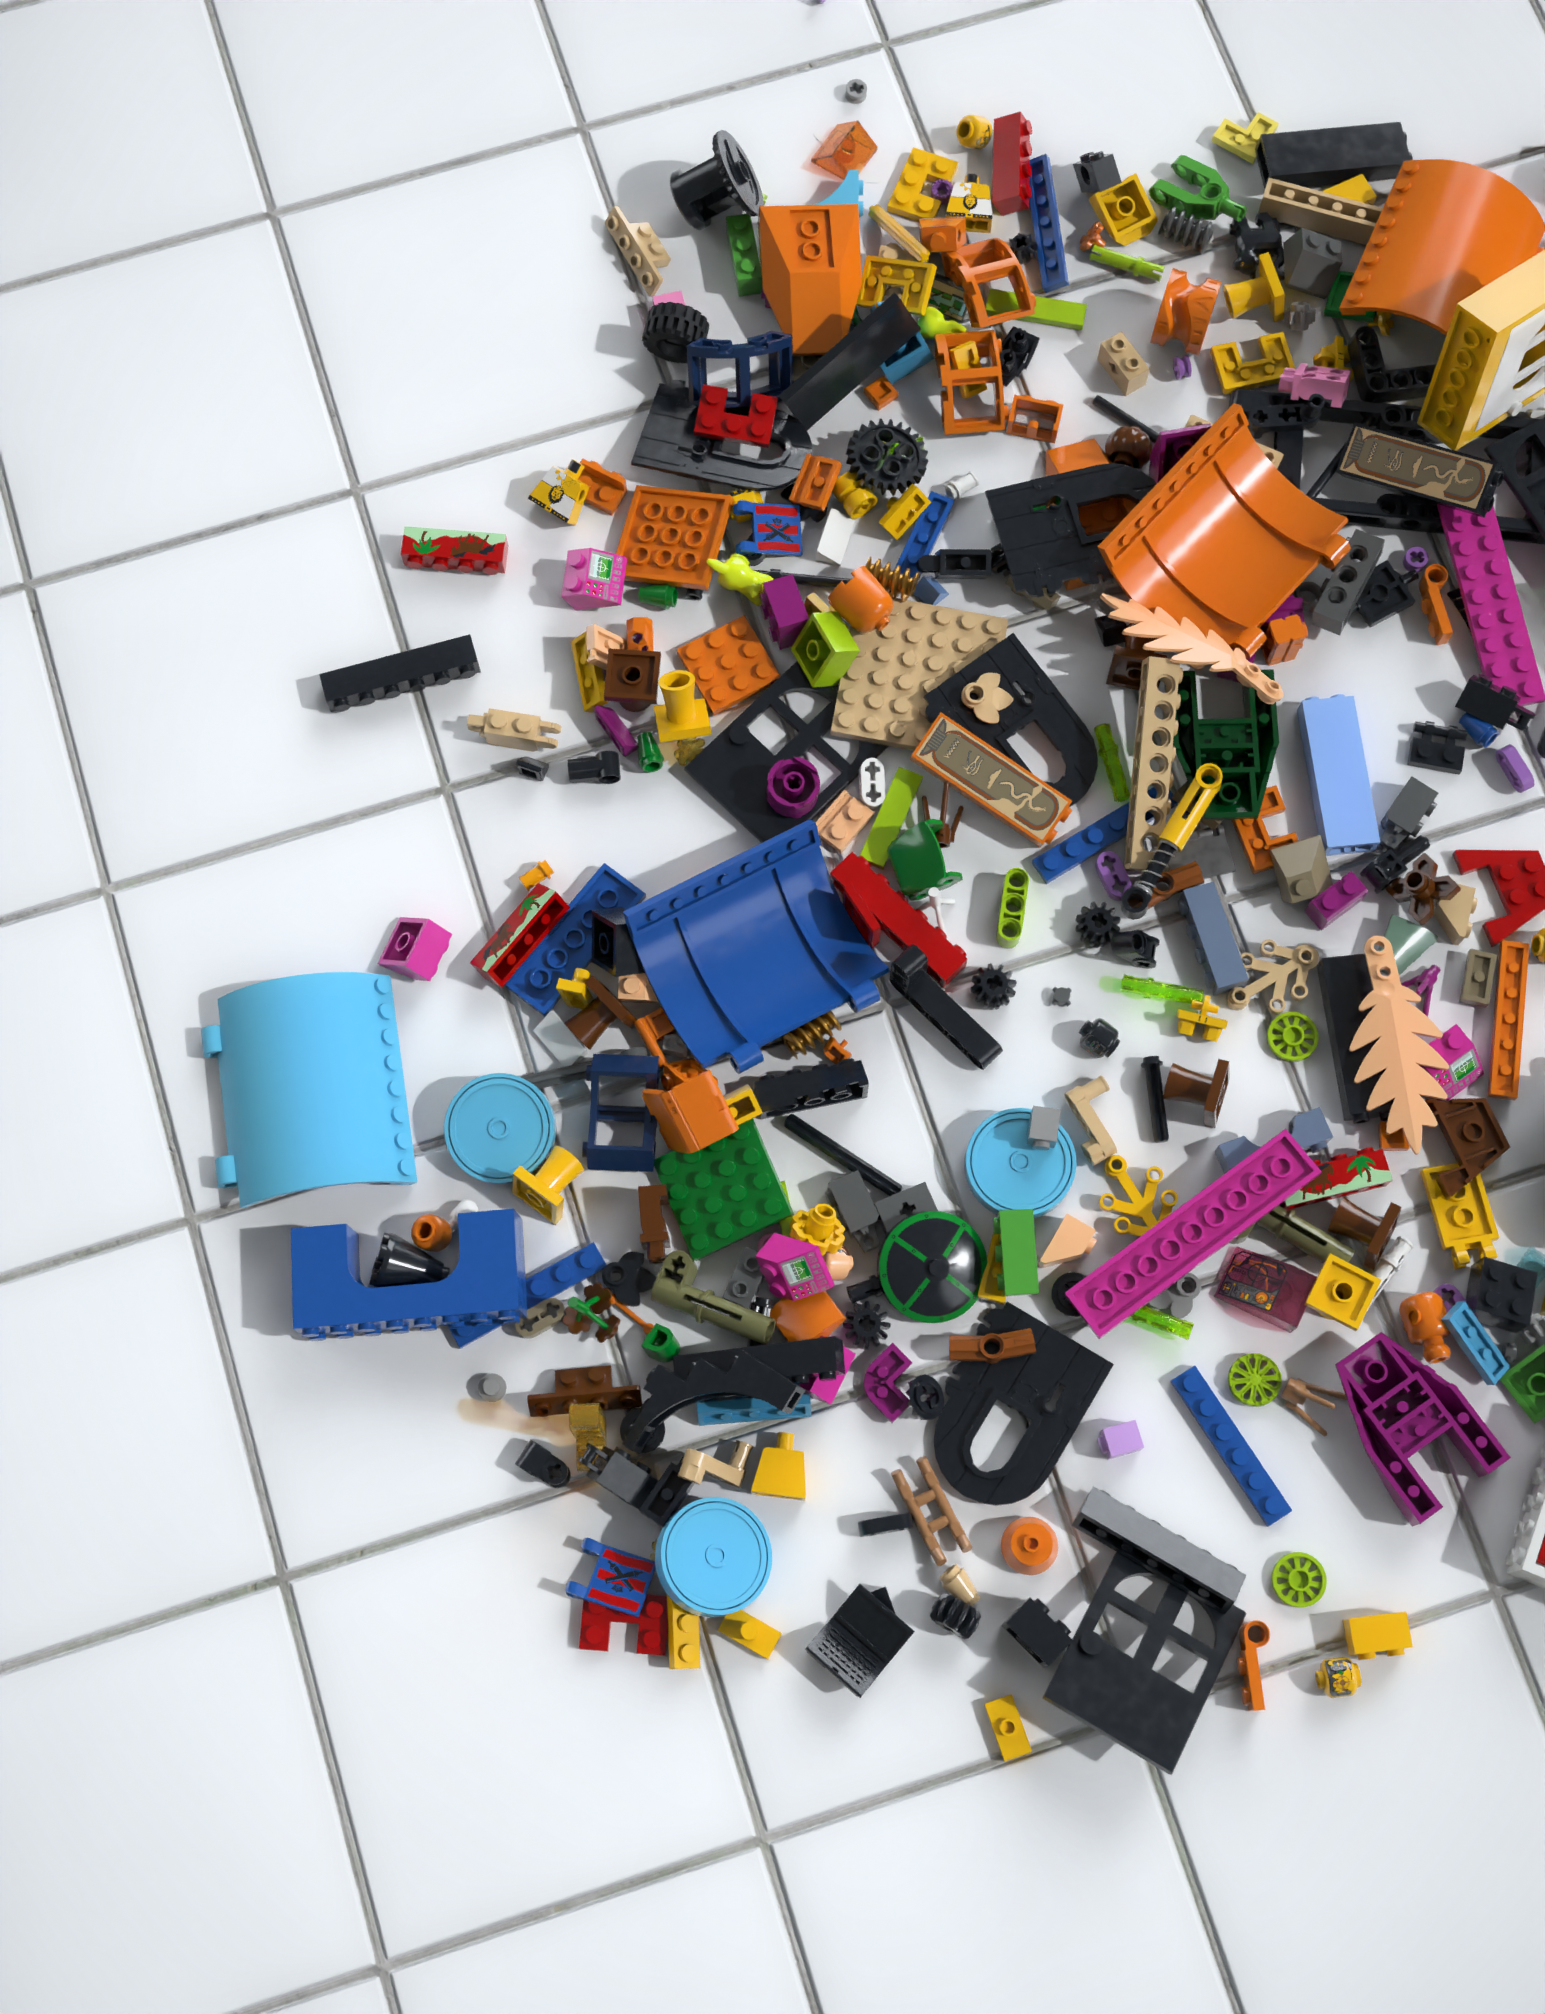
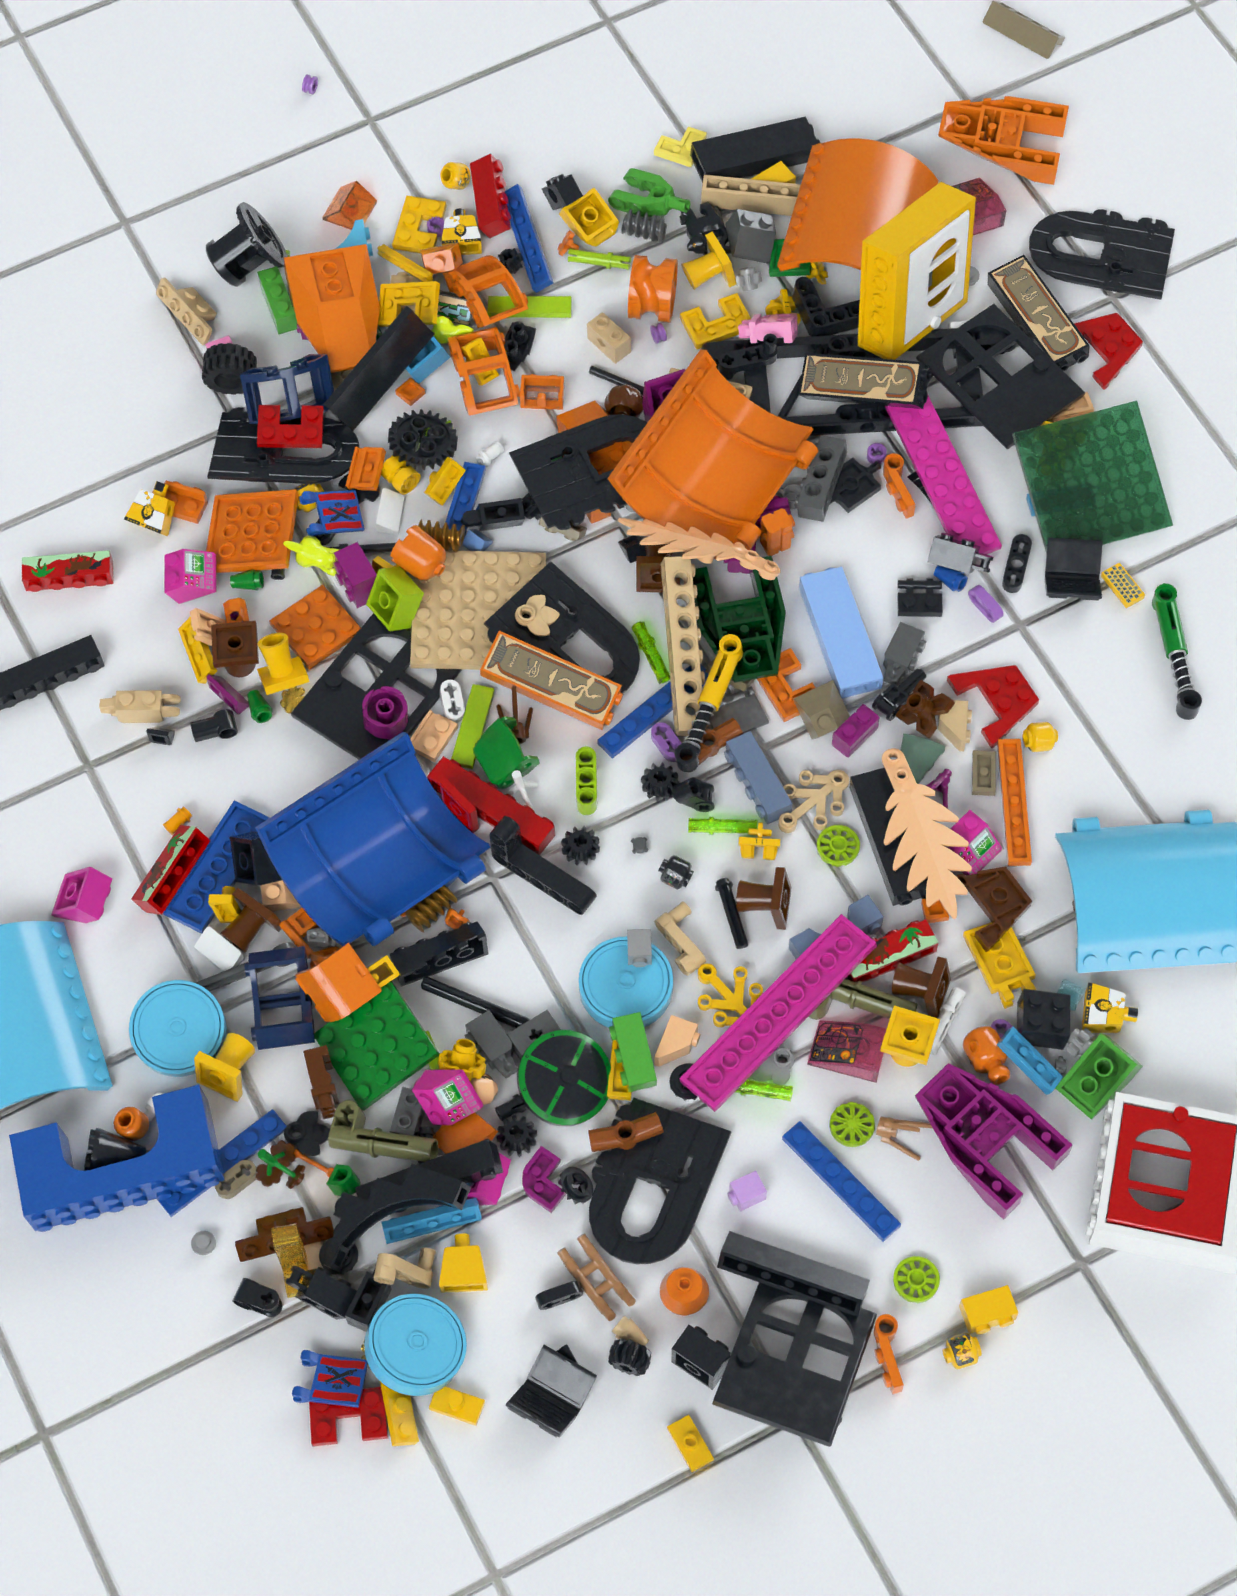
camera: 10 degrees left, 10 degrees down
(853, 97) = (349, 163): light grey bush -> none

